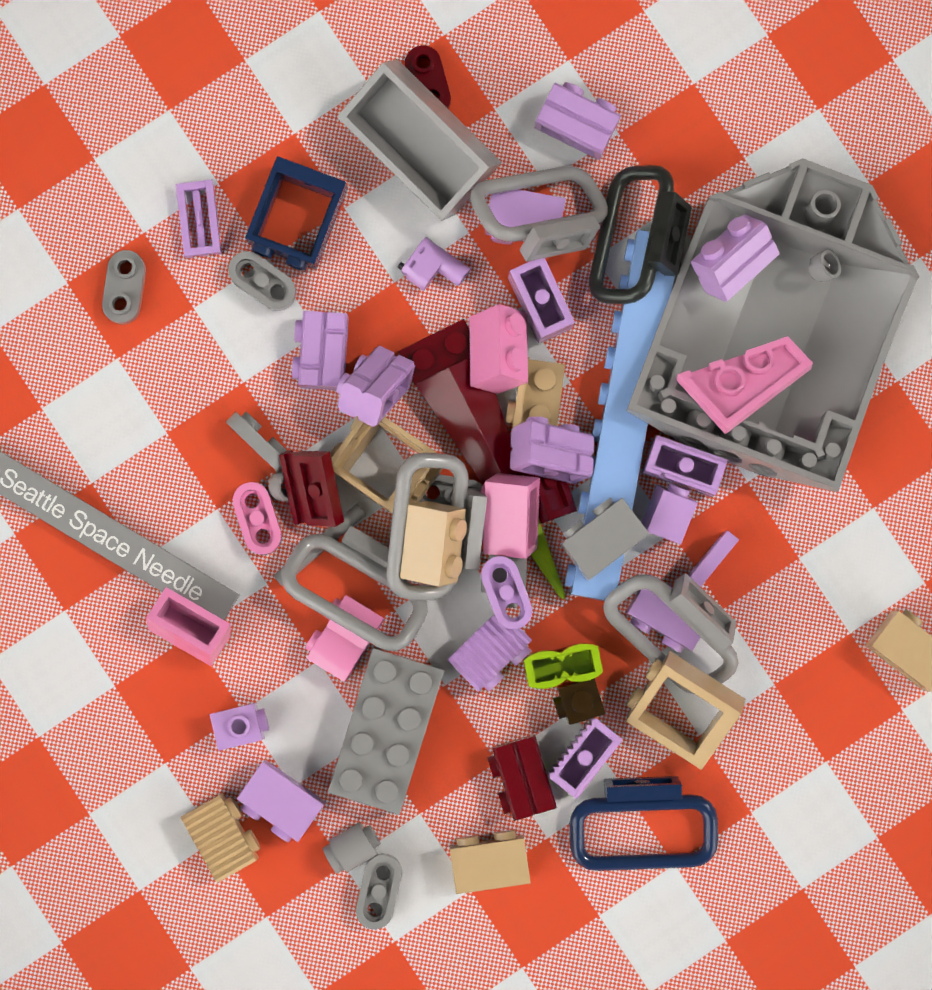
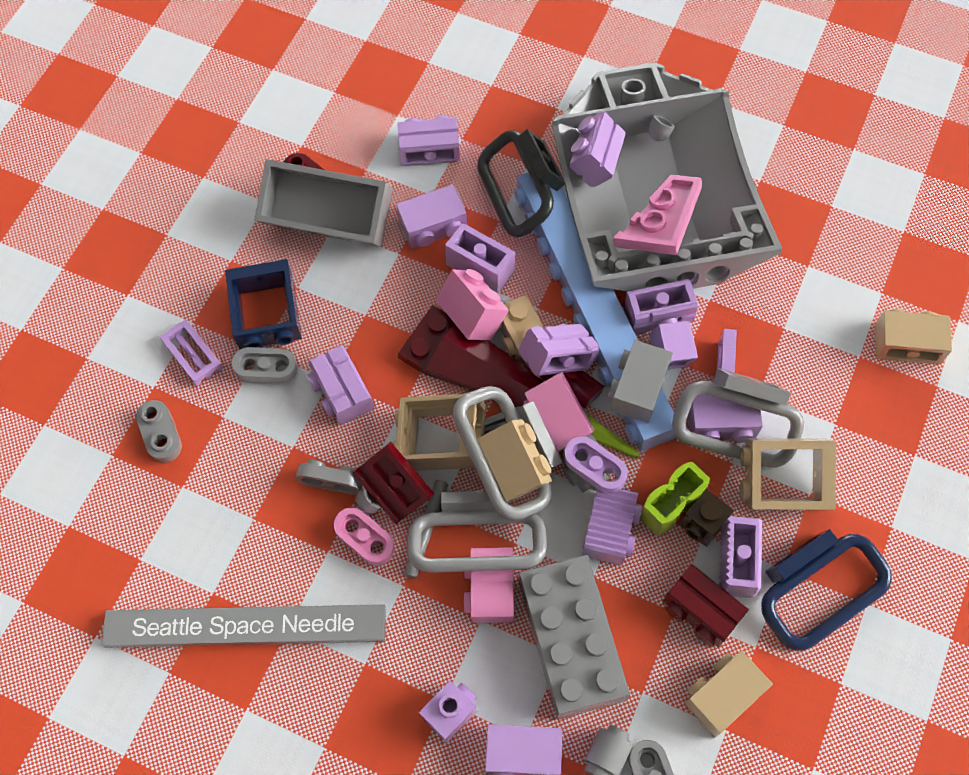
camera: 25 degrees left, 20 degrees down
(188, 626) = (358, 651): bright pink brick -> none
(375, 385) = (395, 380): lavender brick -> none
(428, 261) = (383, 282): lavender piece -> none
(549, 236) = (456, 206): light grey bar -> none

